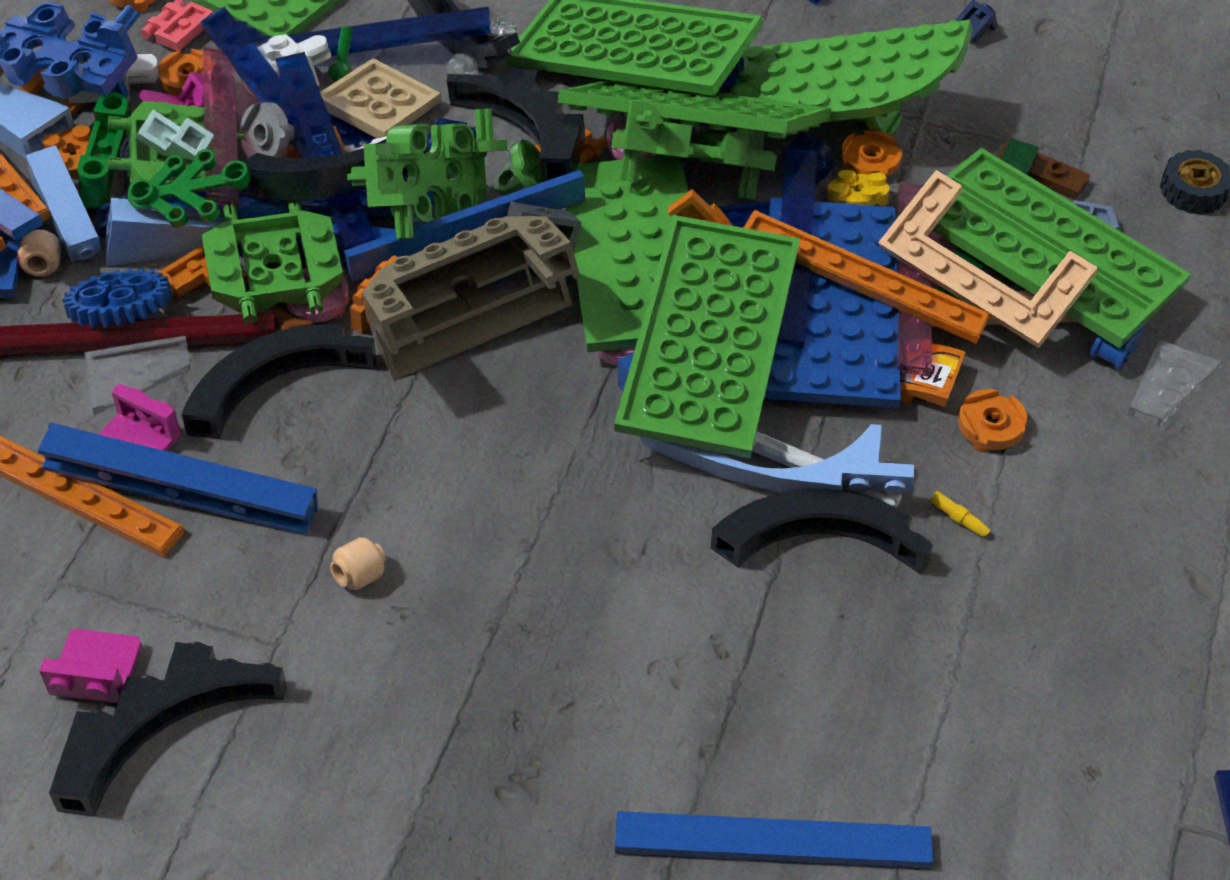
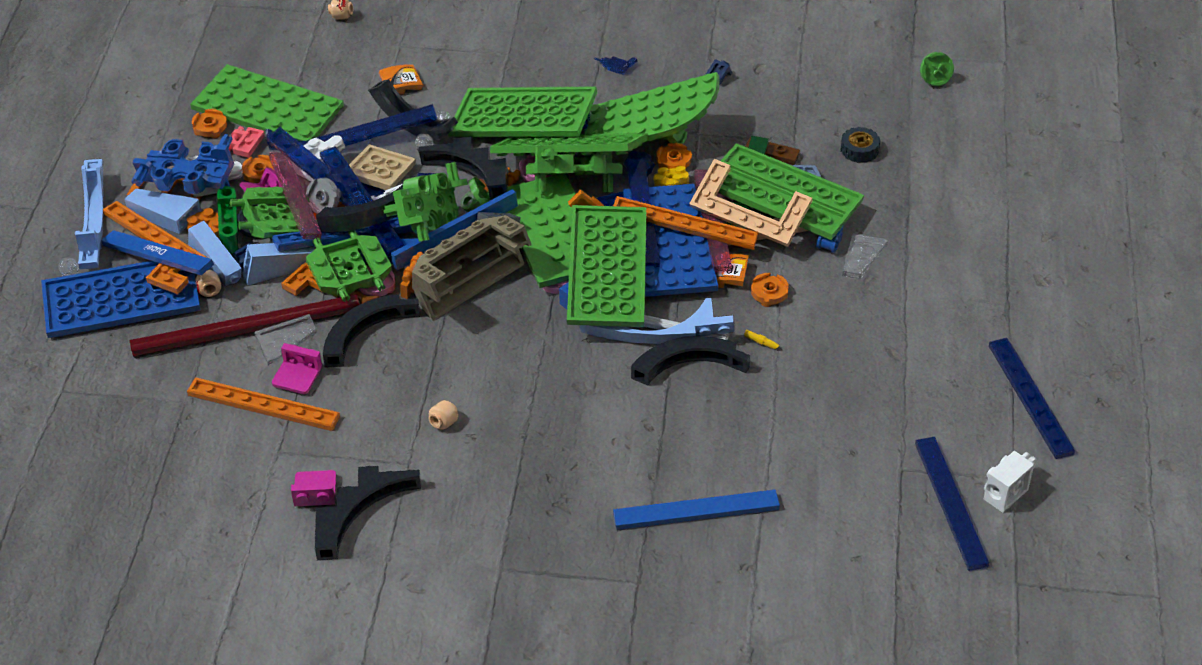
camera: 10 degrees left, 5 degrees down
(117, 297) = (264, 299): blue gear -> none
(150, 193) = (291, 231): green plant -> none
(172, 139) = (280, 207): light aqua slope -> none
(179, 479) = (331, 388): blue tile -> none
(340, 66) = (350, 153): green bar -> none

